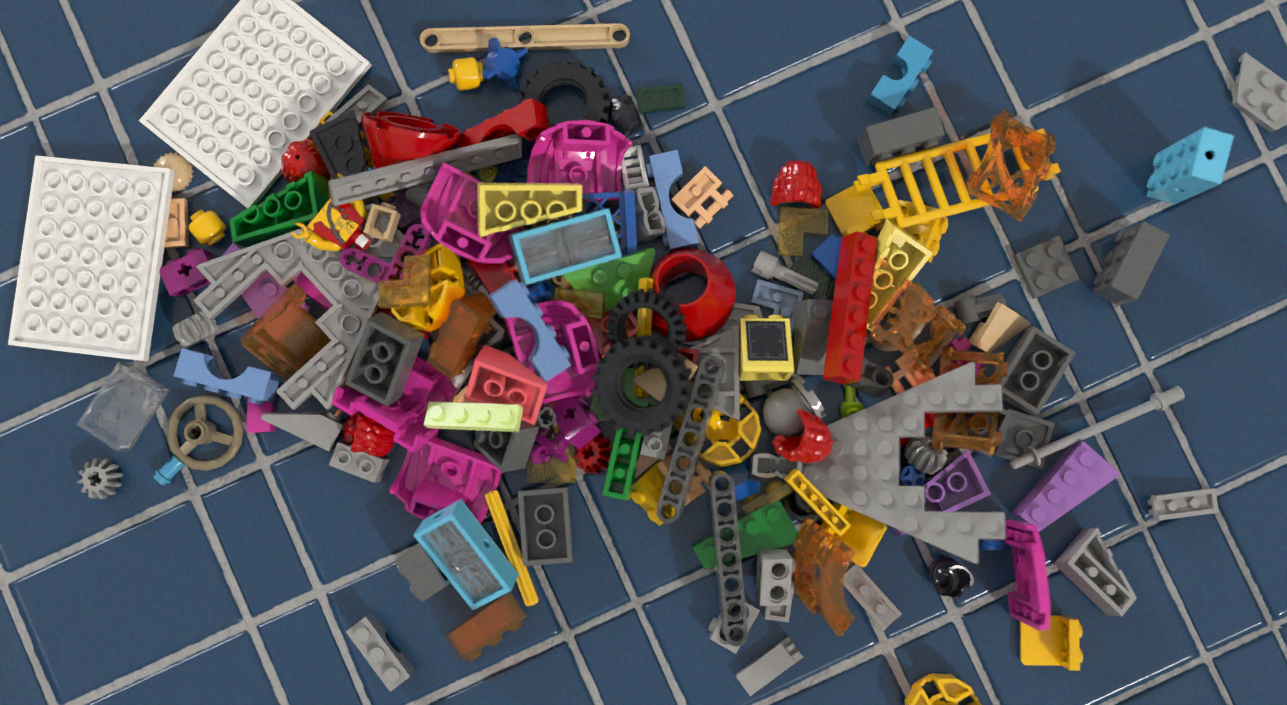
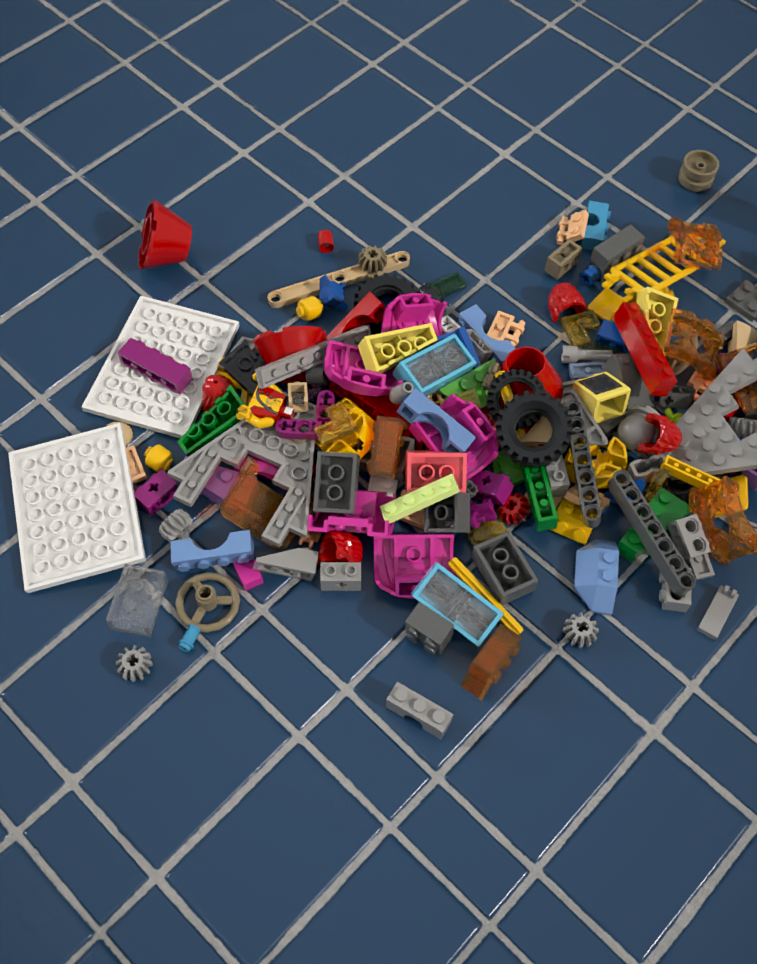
camera: 25 degrees left, 25 degrees down
(239, 97) = (155, 365): none -> magenta brick
(495, 271) = (400, 393): none -> light grey cone
(573, 20) = (372, 259): none -> dark tan gear
(599, 638) = (572, 630): none -> light grey gear
(631, 282) = (494, 368): none -> dark tan piece
(653, 567) = (597, 575): none -> medium blue wedge
(827, 118) = (563, 259): none -> dark tan brick
(852, 153) = (589, 275): none -> blue wheel
(872, 70) = (576, 227): none -> light nougat plate
(1092, 36) = (698, 170): none -> dark tan wheel

